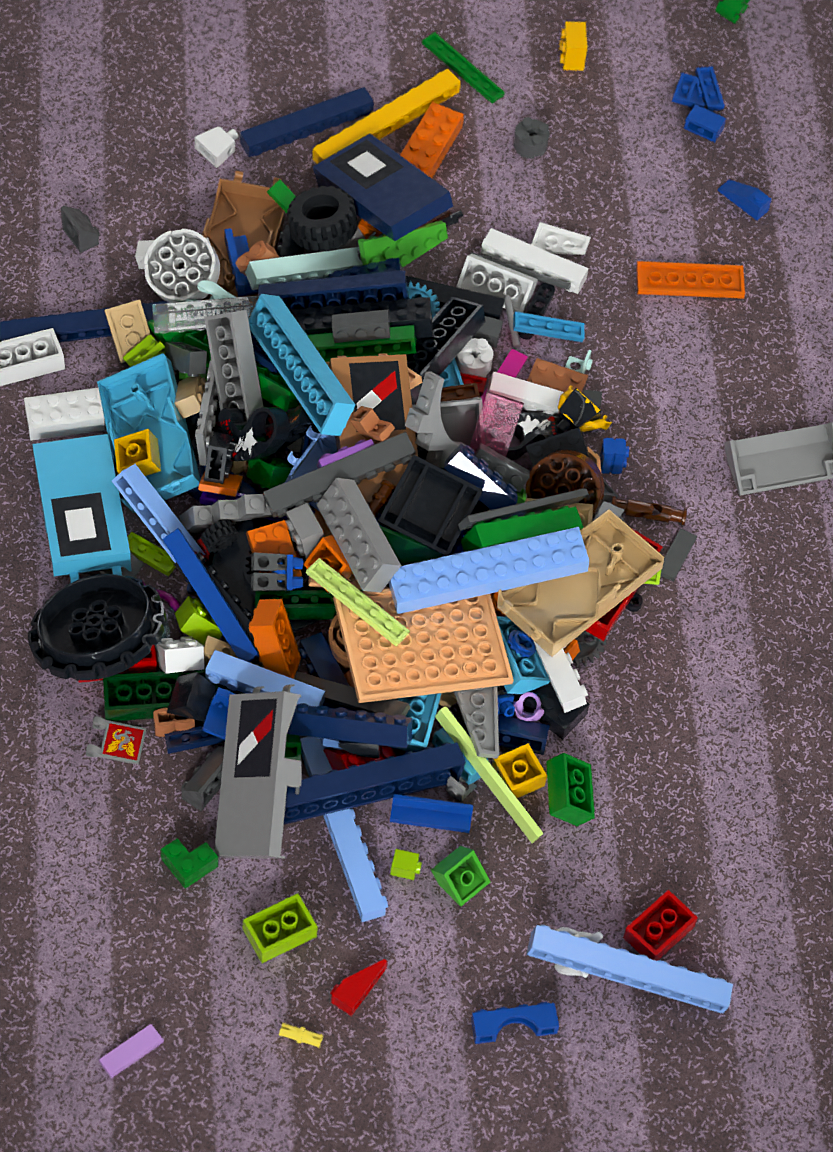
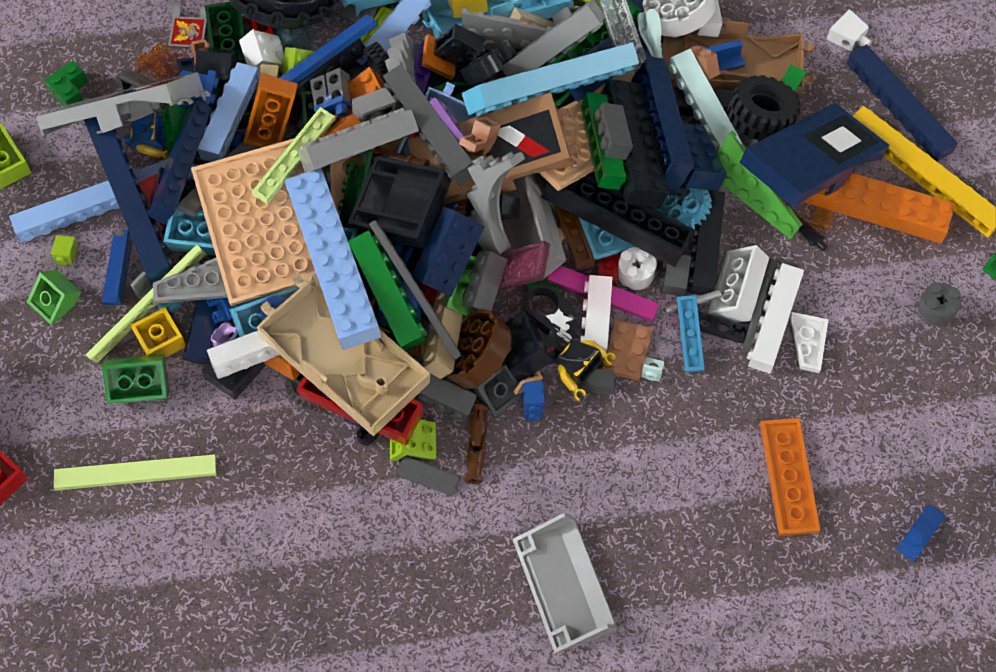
camera: 90 degrees right, 5 degrees up
(168, 771) = (153, 59): none -> clear orange plate
(662, 803) = (135, 472): none -> yellowish green tile

